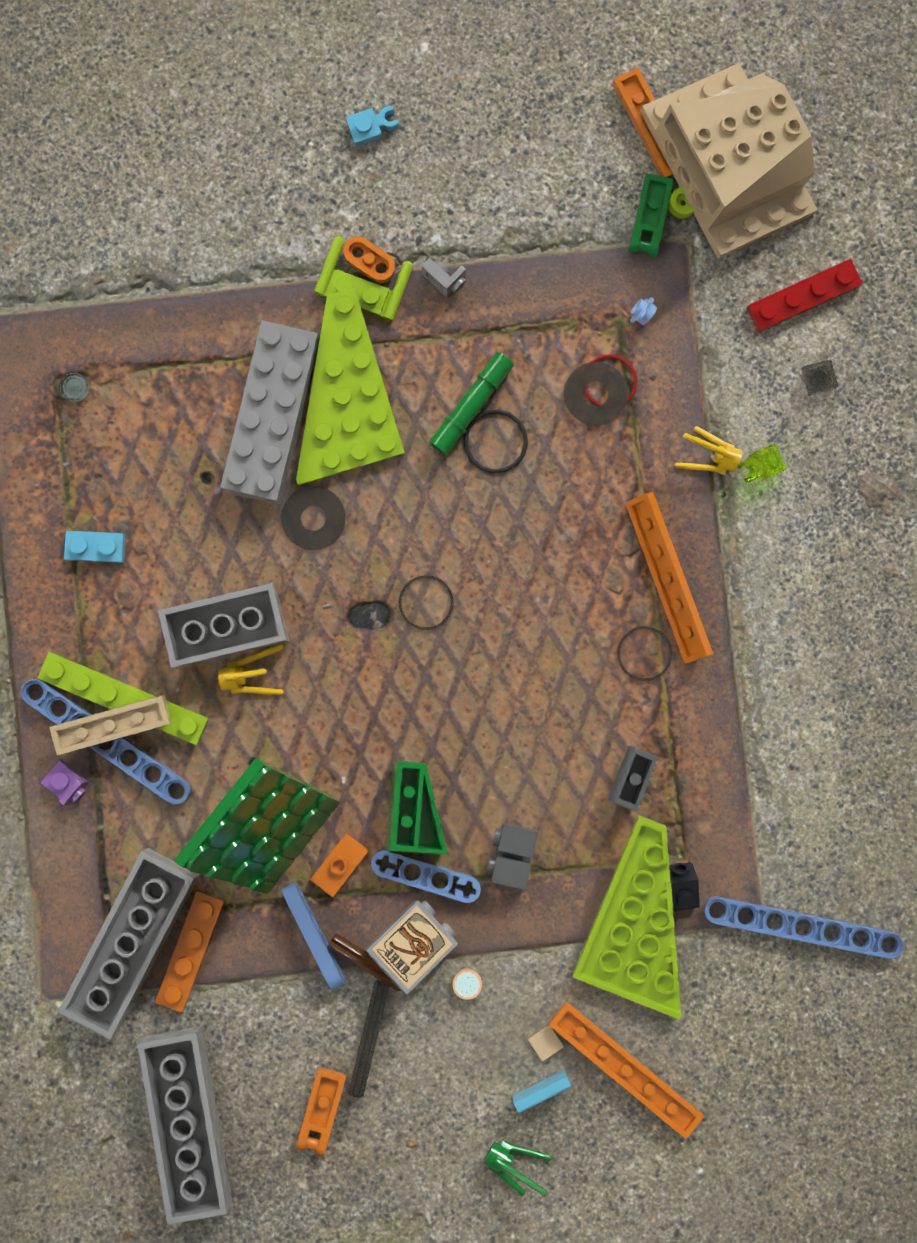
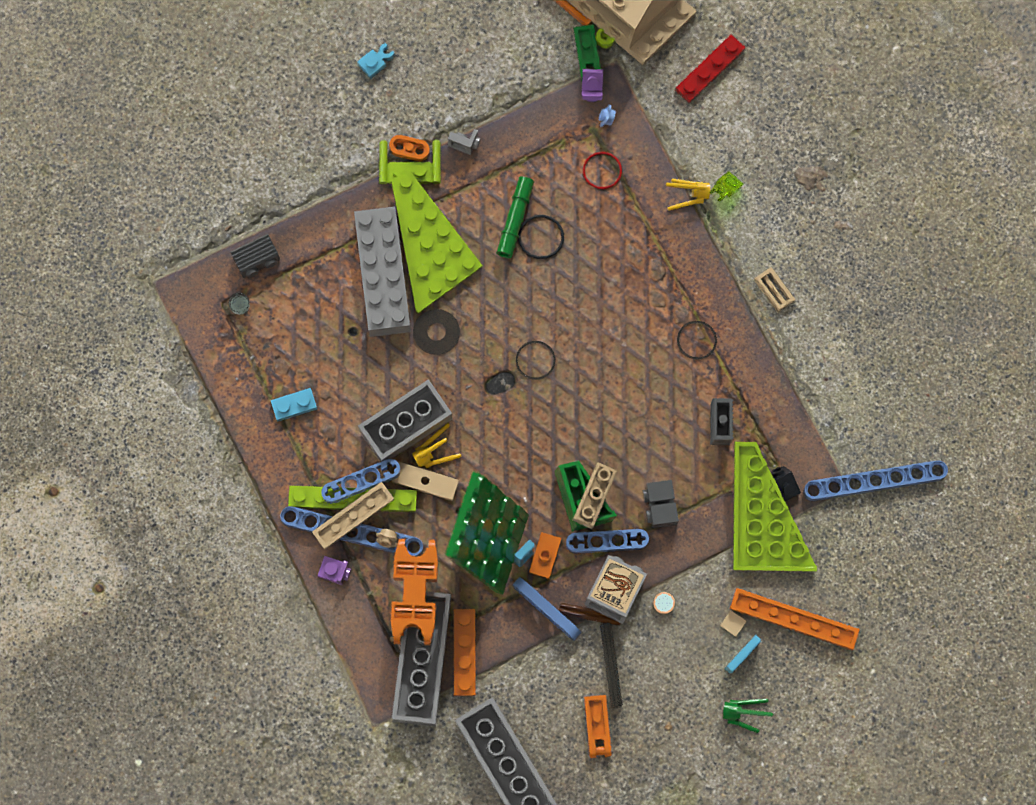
camera: 20 degrees left, 10 degrees down
(116, 332) = (255, 256): none -> dark grey brick
(136, 882) = (413, 609): none -> orange piece
(138, 679) = (362, 484): none -> medium blue beam
(142, 771) = (387, 538): none -> tan plate
(208, 701) = (438, 484): none -> tan tile
(310, 858) = (524, 553): none -> medium azure tile
(414, 832) = (589, 505): none -> tan tile
(601, 373) = (592, 195): clear smoke gear -> none
(640, 261) = (592, 84): none -> medium lavender bracket
(669, 577) = (693, 283): orange plate -> none
(772, 630) = (769, 296): none -> tan tile
(819, 377) = (741, 117): clear smoke plate -> none

